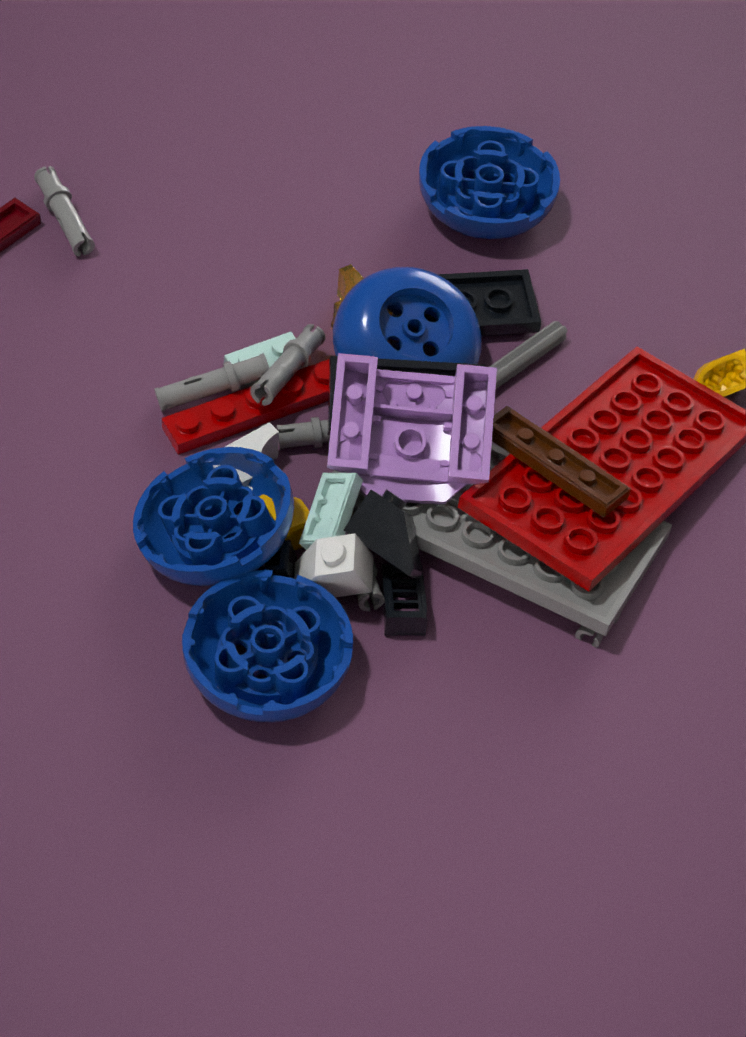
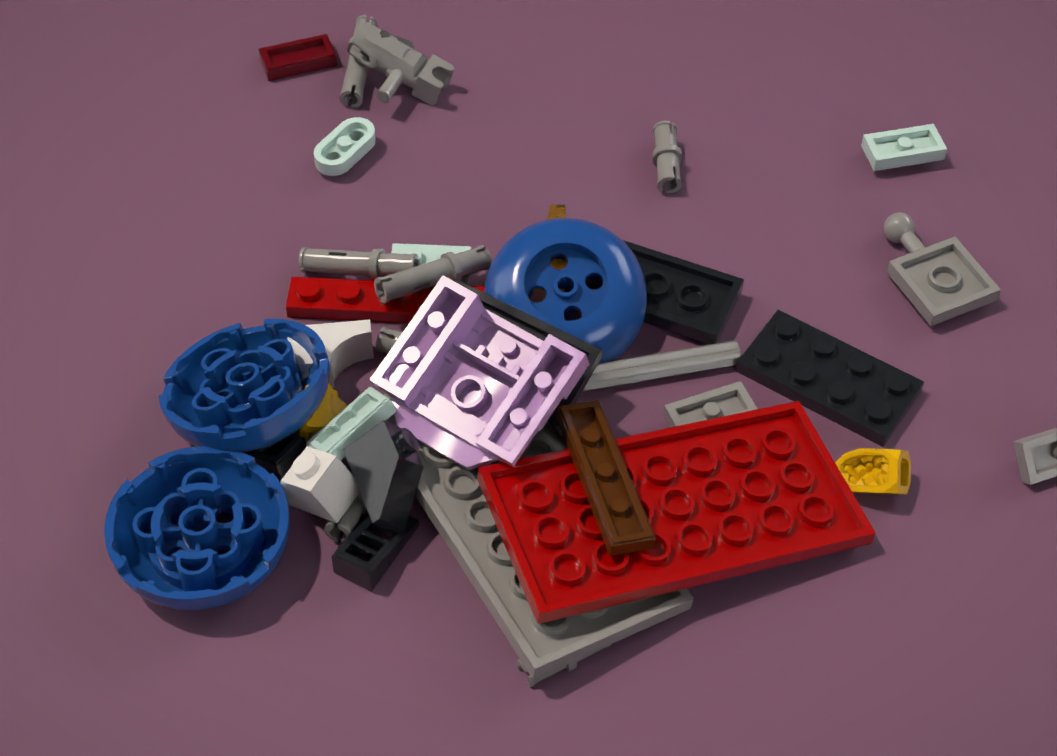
camera: 35 degrees right, 0 degrees up
(112, 197) = (401, 64): none -> light grey piece
(115, 290) = (344, 146): none -> light aqua plate
(390, 194) = (667, 156): none -> light grey pin
(488, 182) = (740, 176): blue brick -> none
(565, 116) = (903, 147): none -> light aqua plate
(575, 380) = (709, 405): none -> light grey plate
(641, 318) = (830, 377): none -> black plate
(661, 208) = (937, 278): none -> light grey plate

